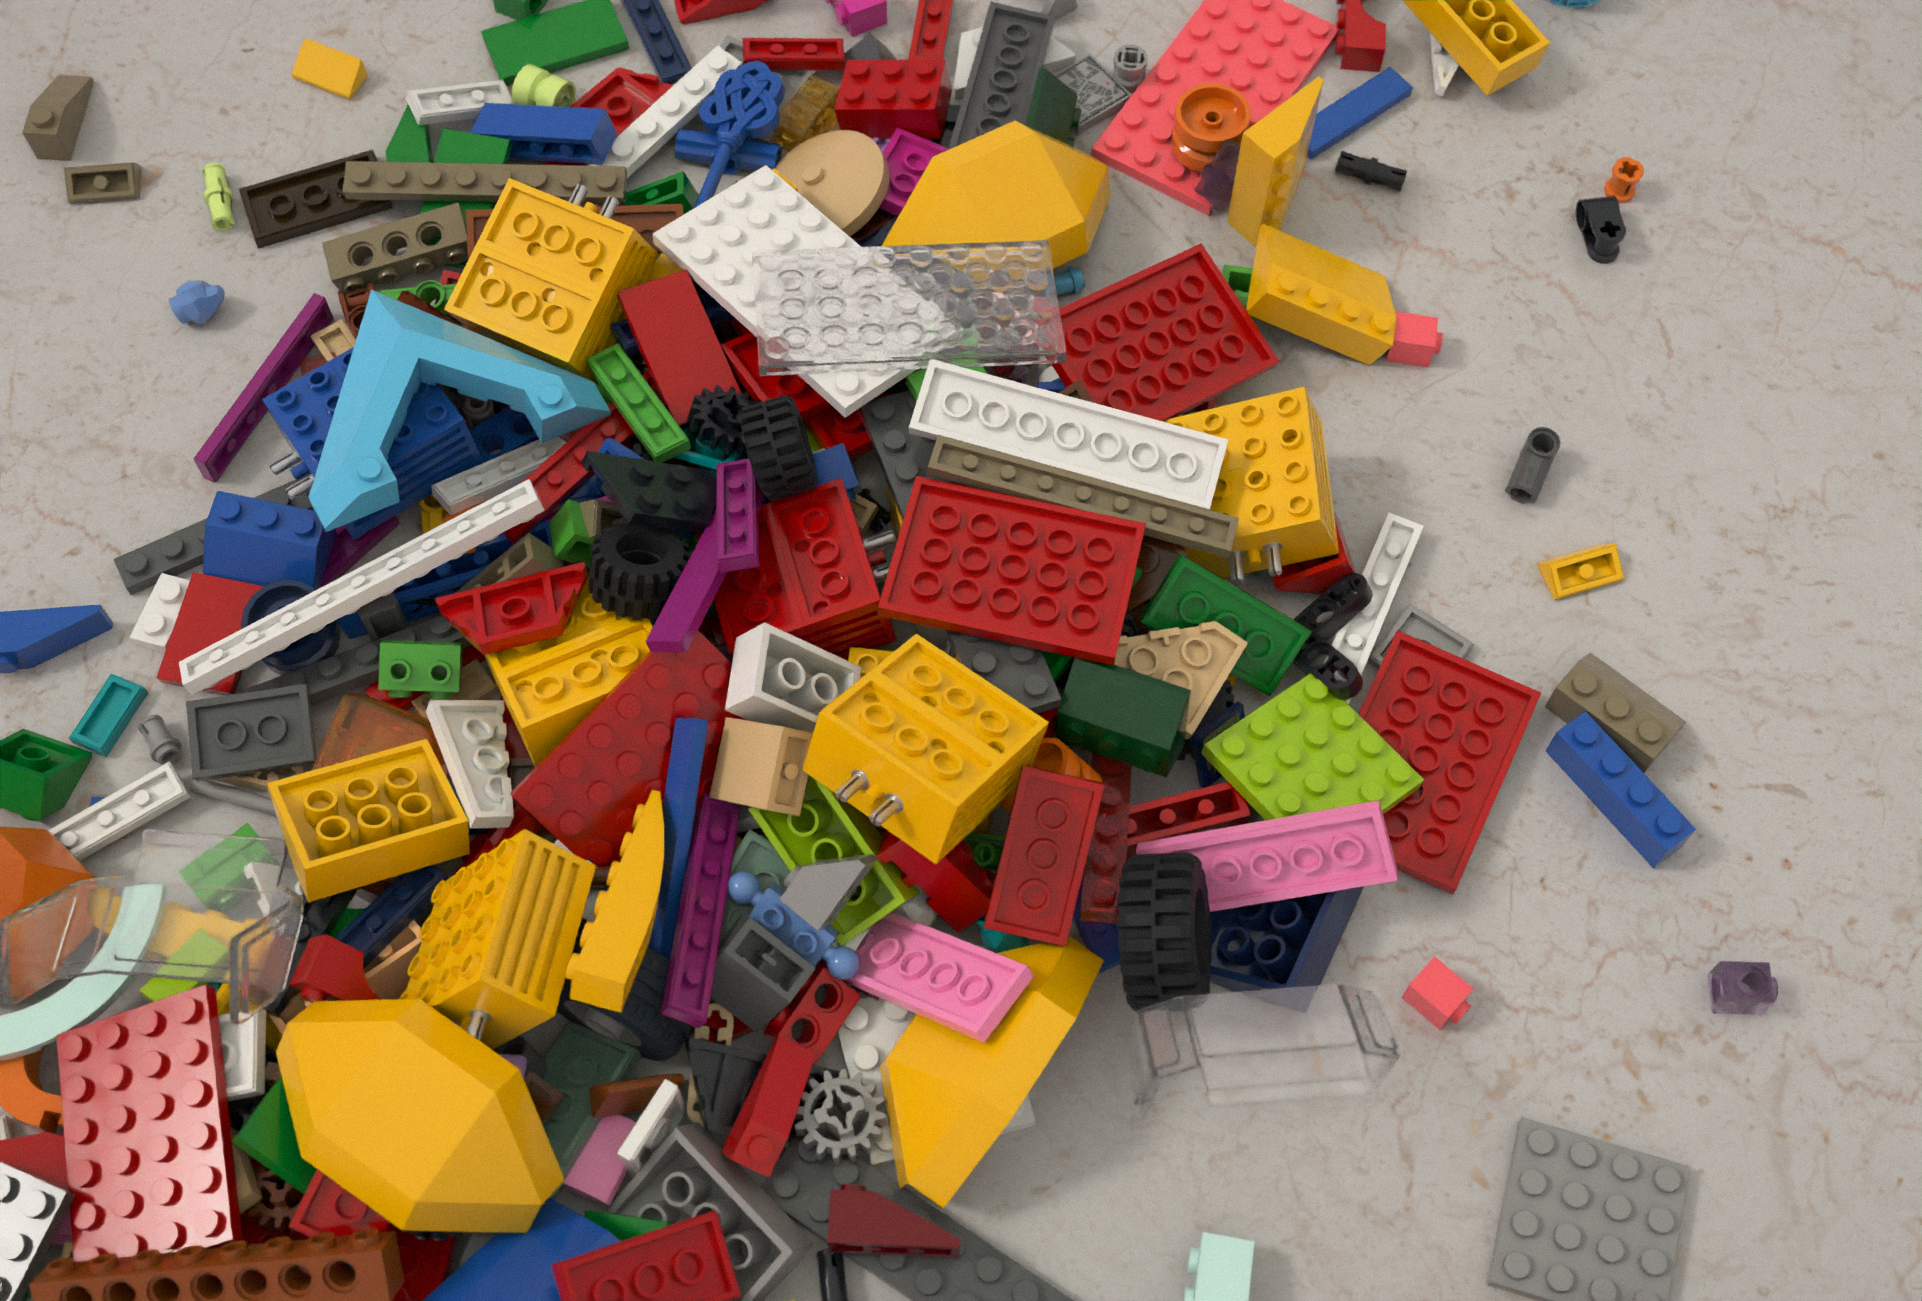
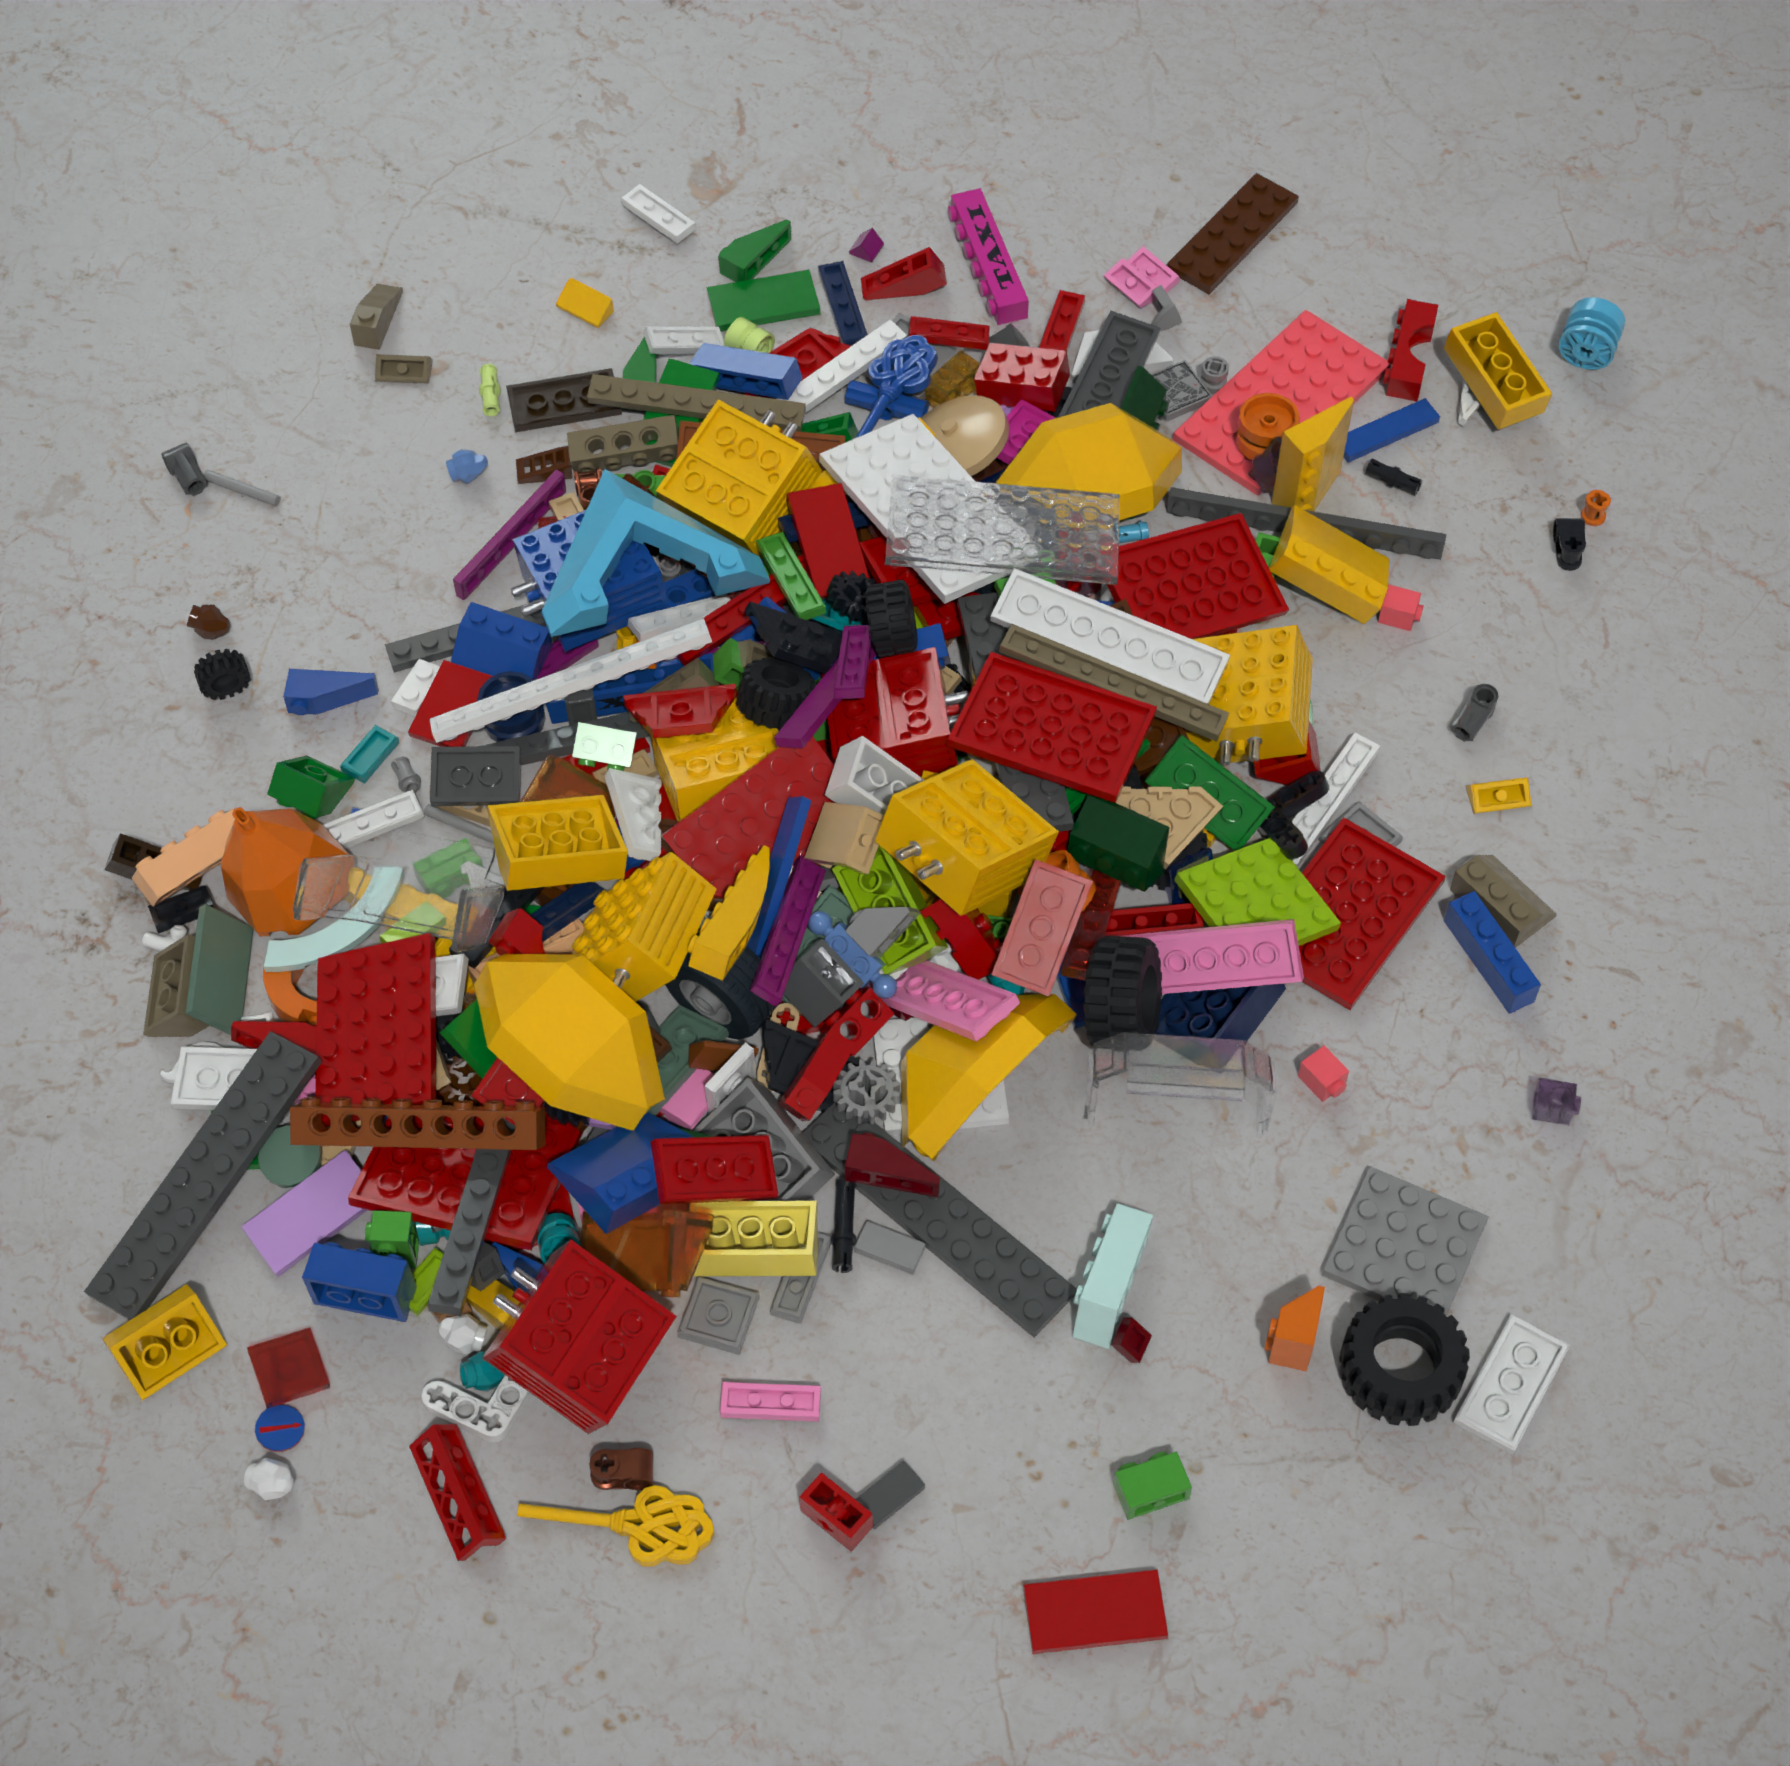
camera: 10 degrees right, 5 degrees down
(305, 276) = (556, 457): none -> reddish brown slope
(1241, 243) = (1274, 517): none -> dark grey plate

